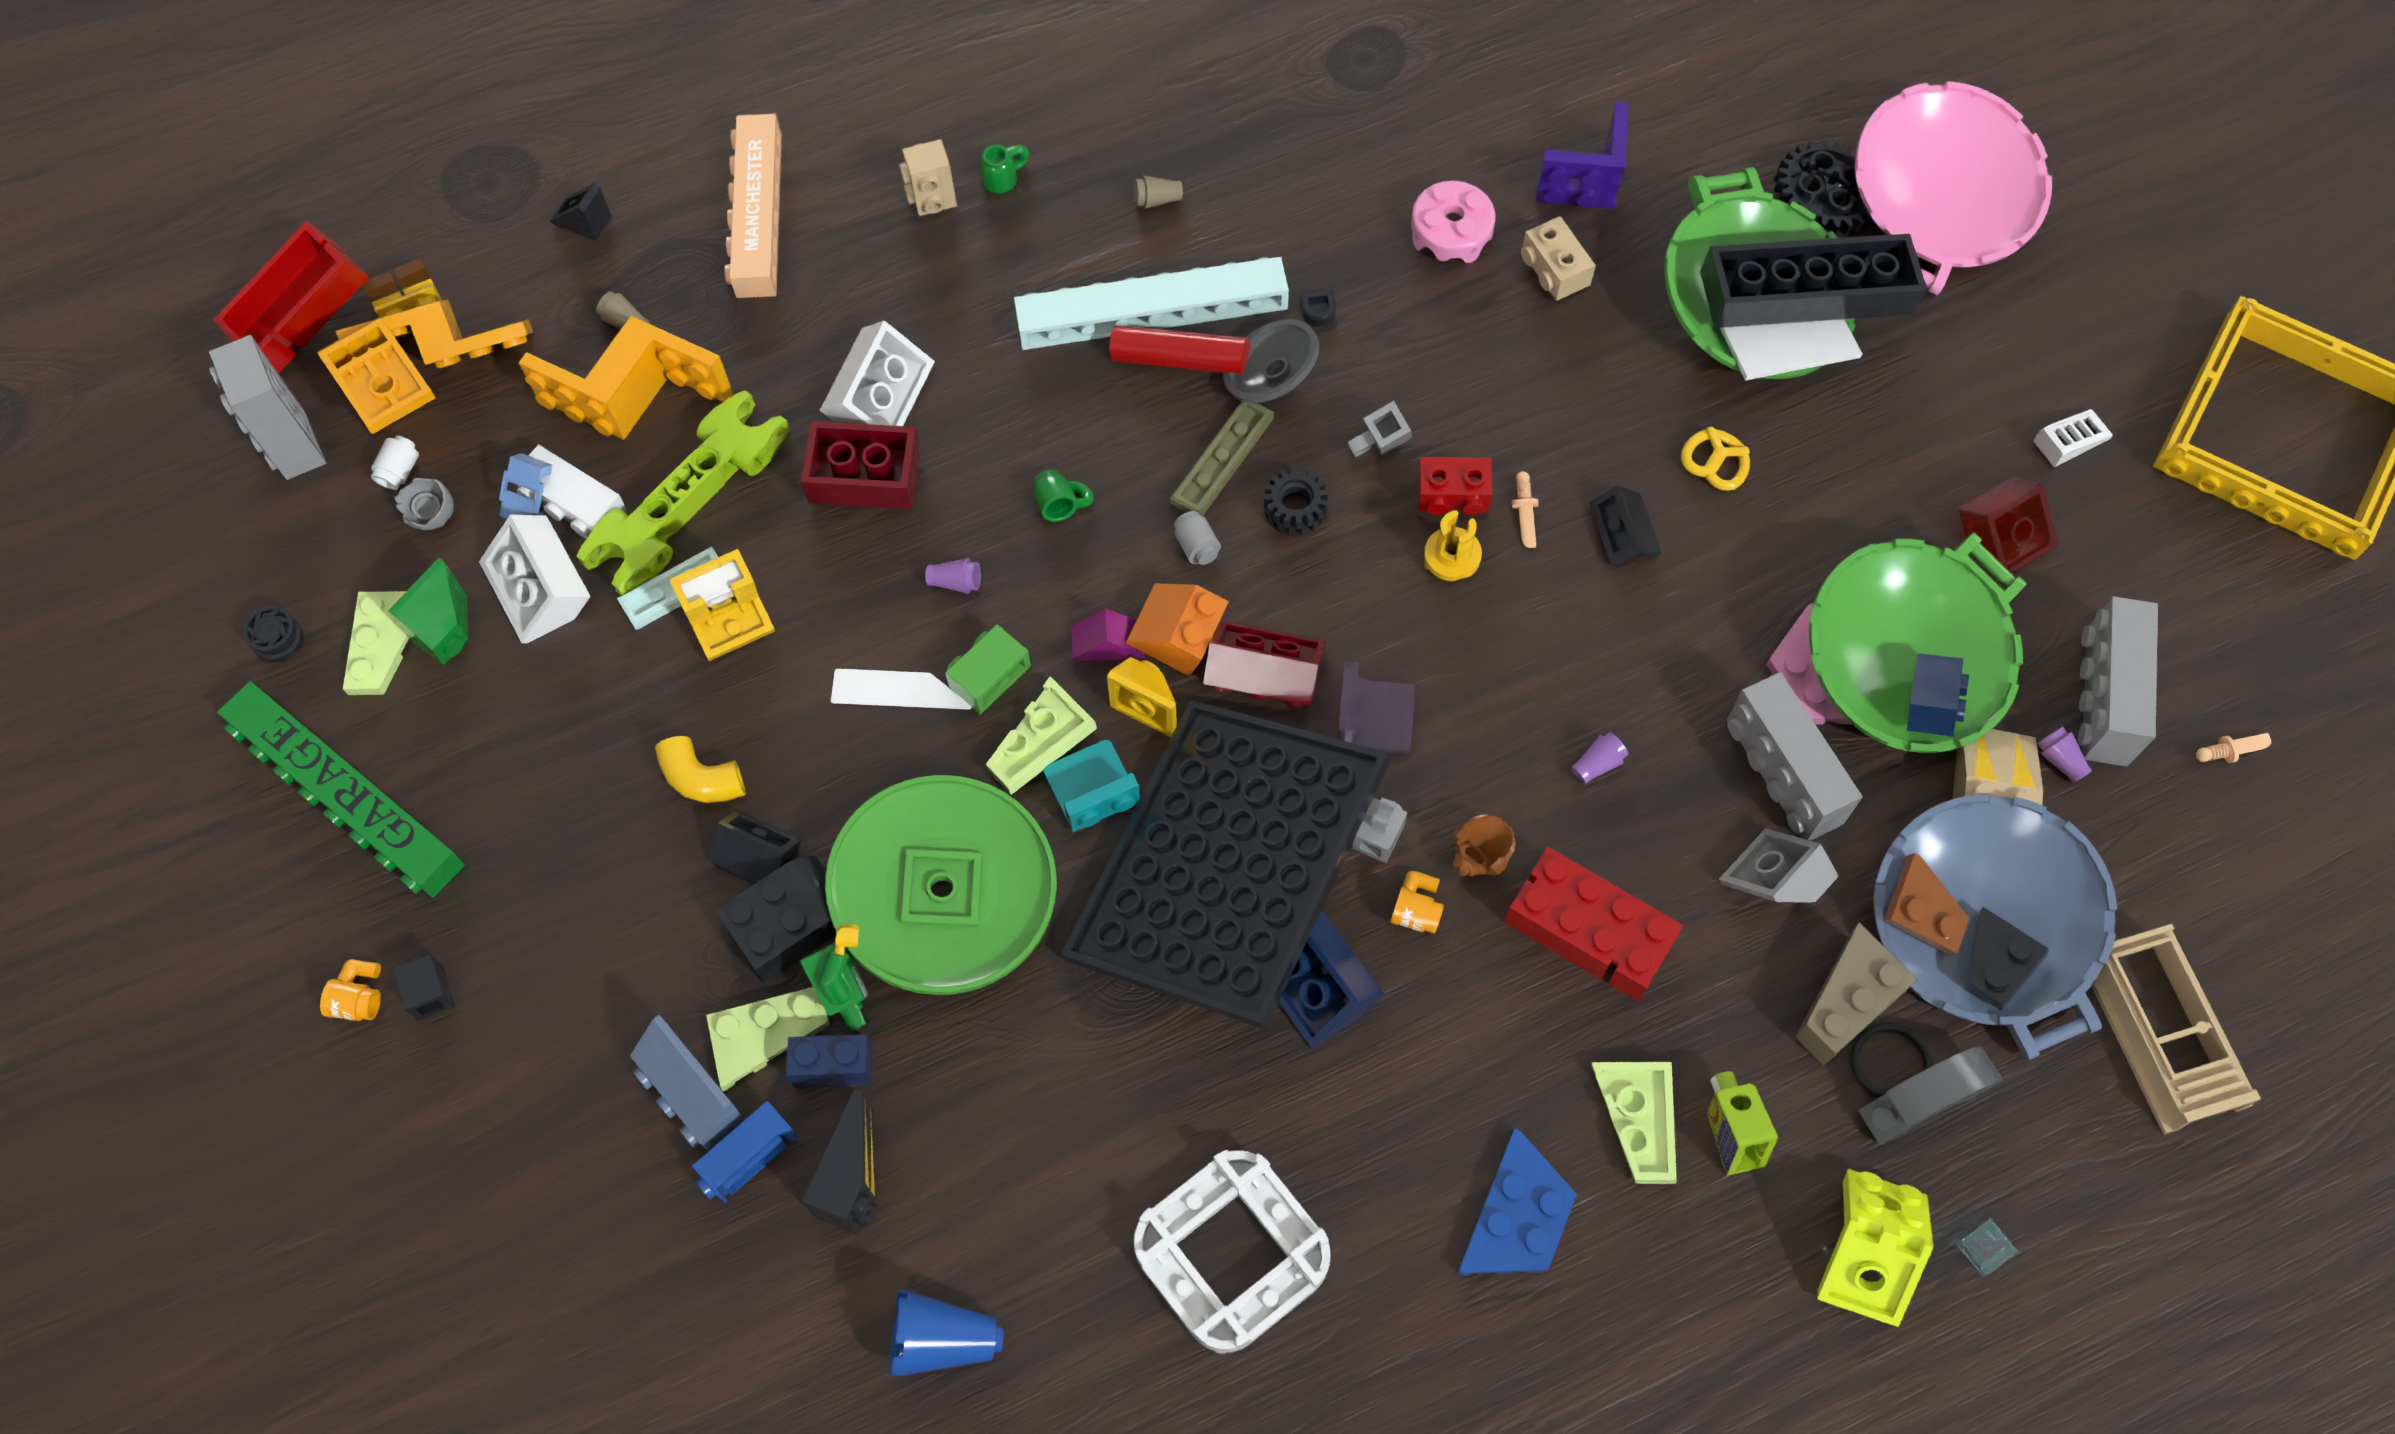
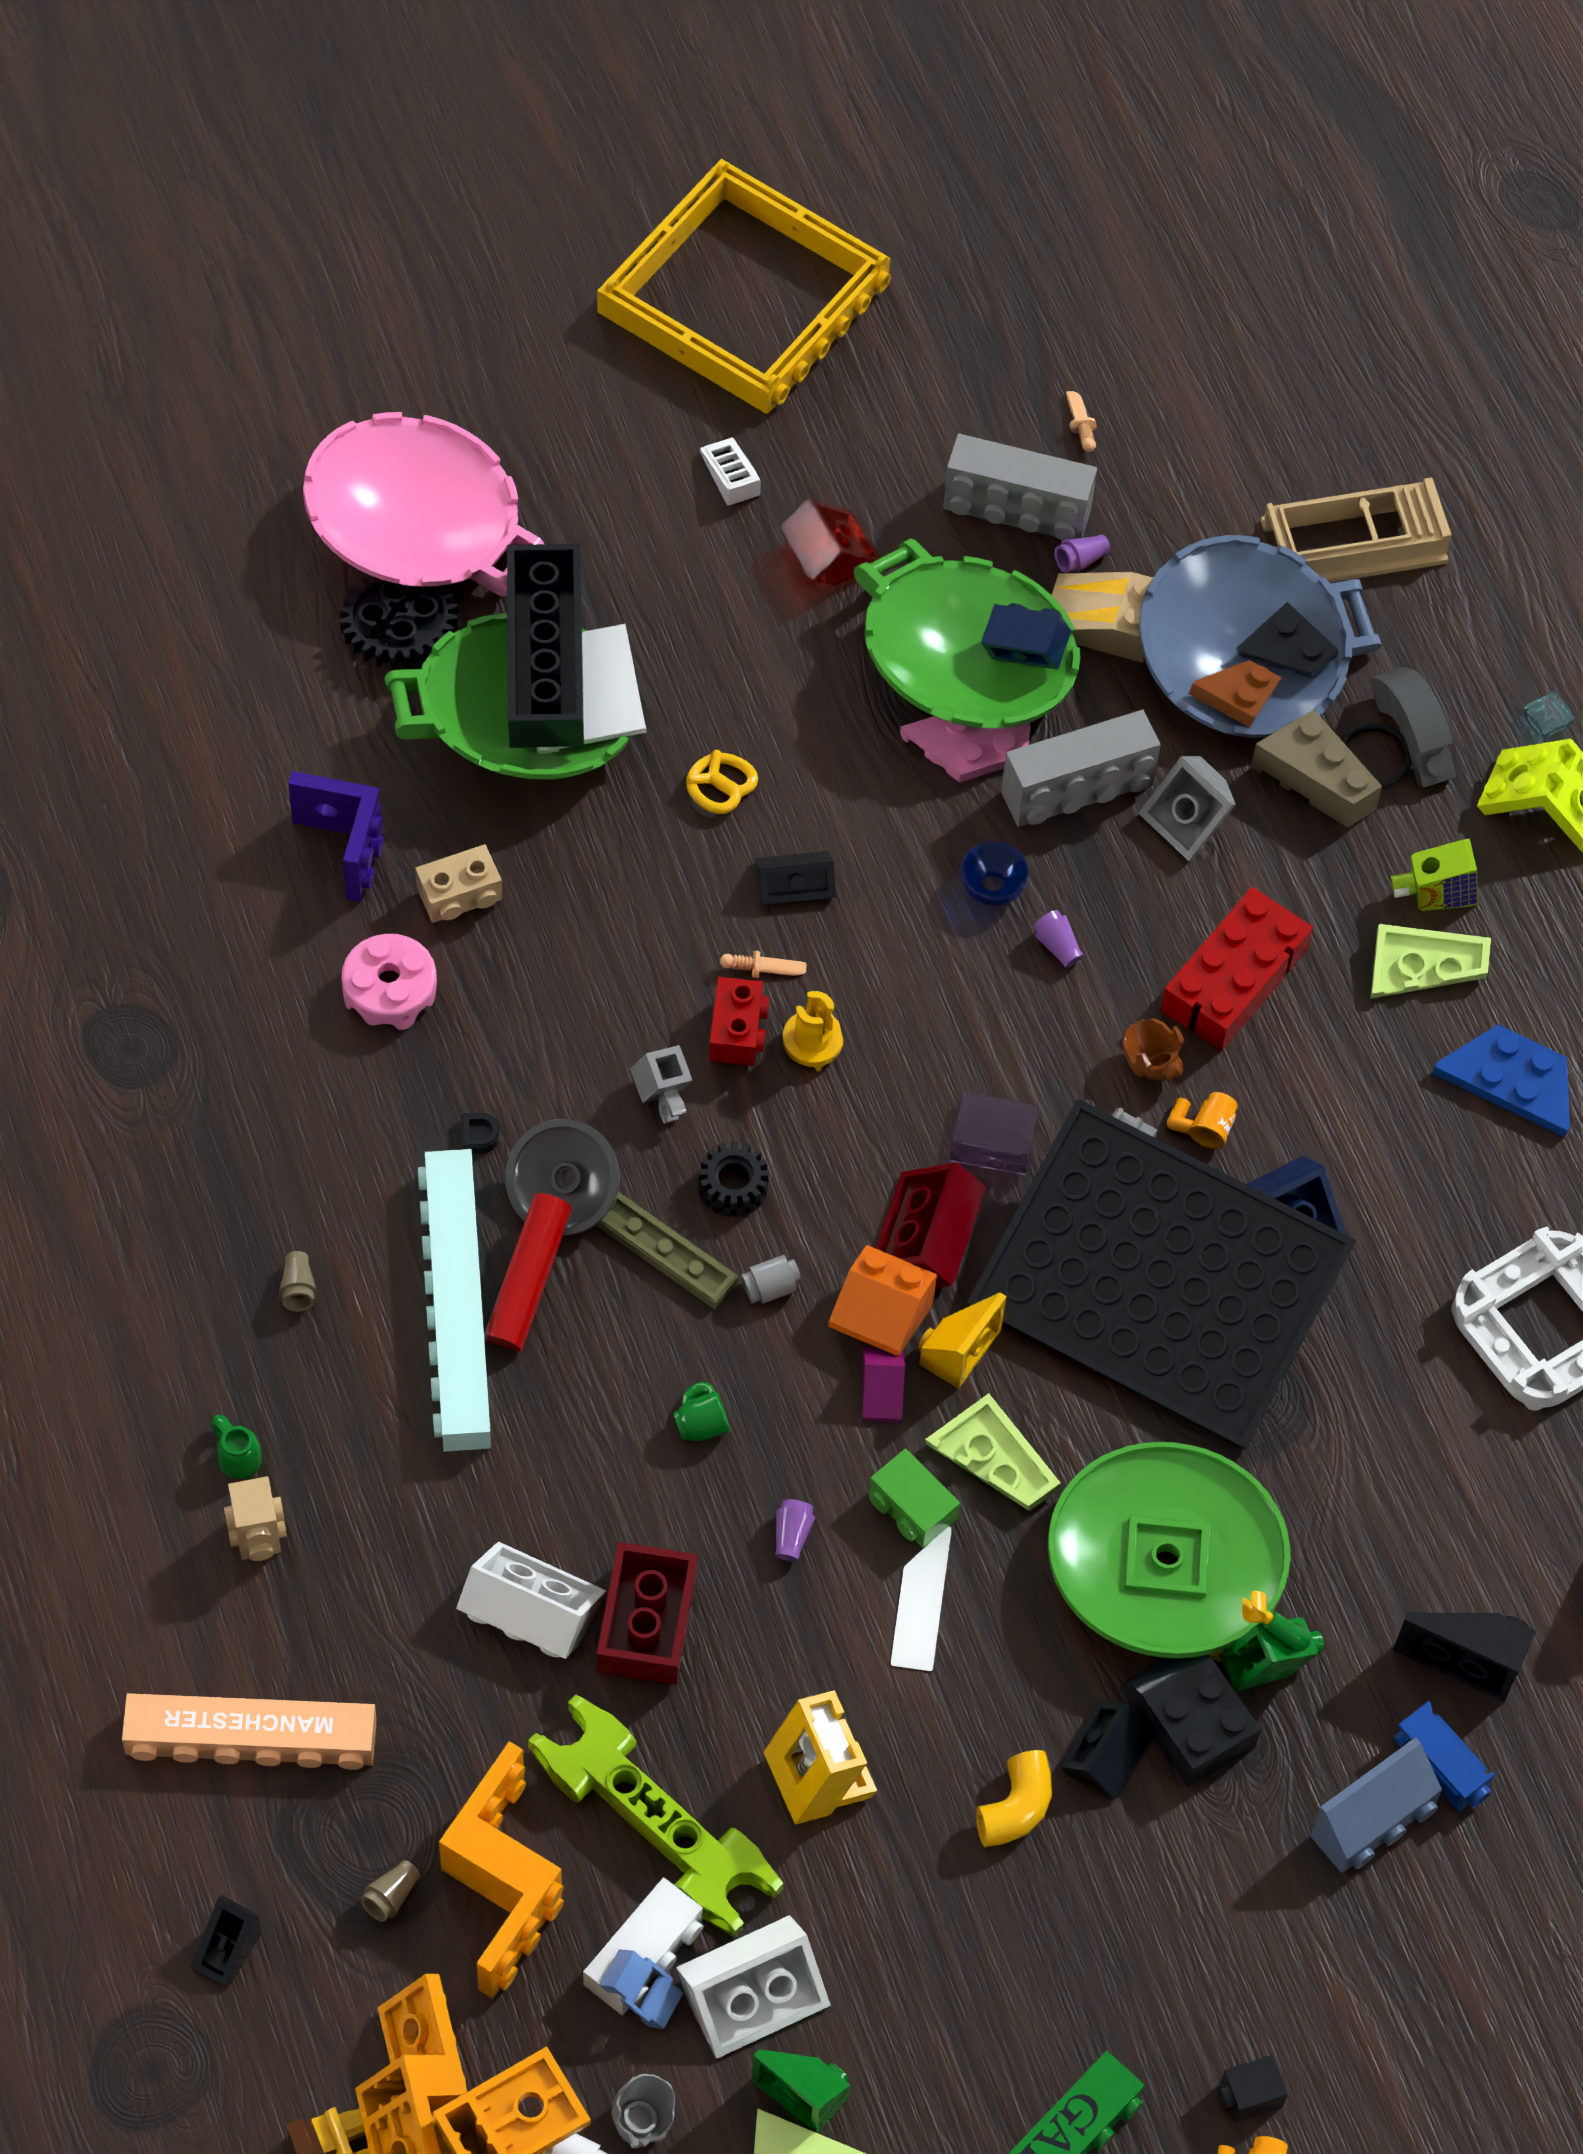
camera: 90 degrees left, 5 degrees down
(657, 595) = (775, 1834): light aqua tile -> none
(759, 1031) = (1310, 1742): yellowish green wing -> none
(830, 1061) = (1352, 1670): dark blue brick -> none
(1092, 785) = (1060, 1404): teal bracket -> none
(1665, 679) = (995, 860): none -> clear blue piece

